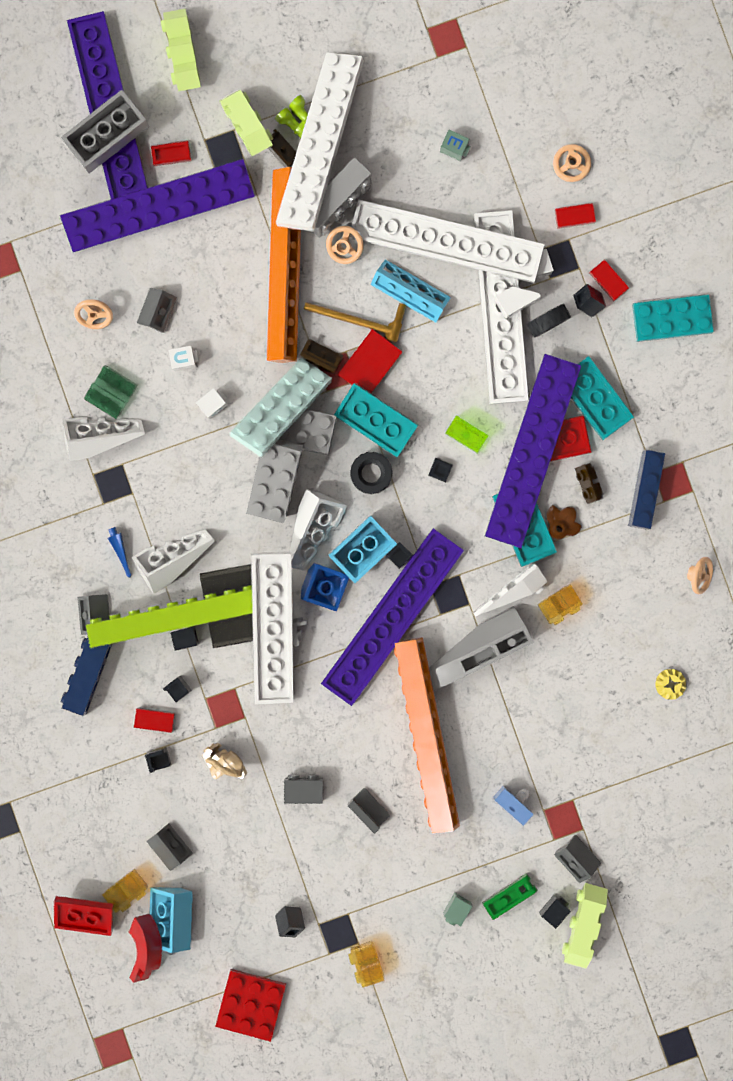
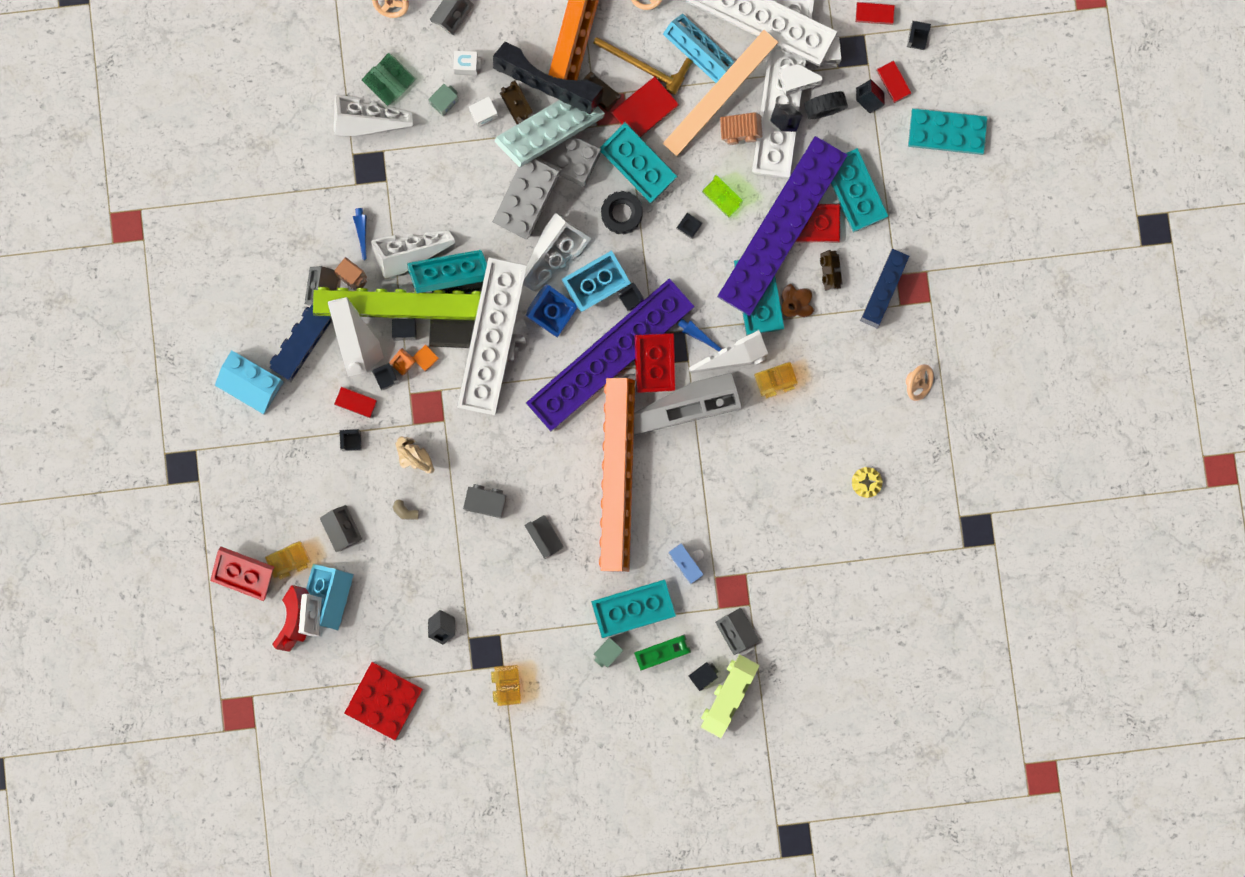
camera: 10 degrees right, 5 degrees down
(44, 724) = (248, 382): none -> medium azure slope
(119, 597) = (351, 274): none -> nougat brick
(139, 663) = (357, 343): none -> white wedge
(159, 945) = (310, 615): none -> white plate
(169, 399) = (444, 99): none -> sand green brick
(190, 670) = (402, 361): none -> orange tile
(212, 661) = (425, 358): none -> orange tile
(214, 572) = (447, 271): none -> teal plate
(227, 818) = (403, 512): none -> dark tan arm
(242, 387) = (516, 102): none -> dark brown hinge
(303, 366) = (577, 93): none -> black arch
(438, 615) = (654, 362): none -> red plate
(442, 331) = (720, 93): none -> light nougat tile
(466, 573) = (693, 331): none -> blue piece
(469, 362) = (741, 127): none -> nougat brick
(472, 861) = (633, 608): none -> teal plate
(512, 342) = (786, 117): none -> black panel
(623, 228) = (918, 35): none -> black panel

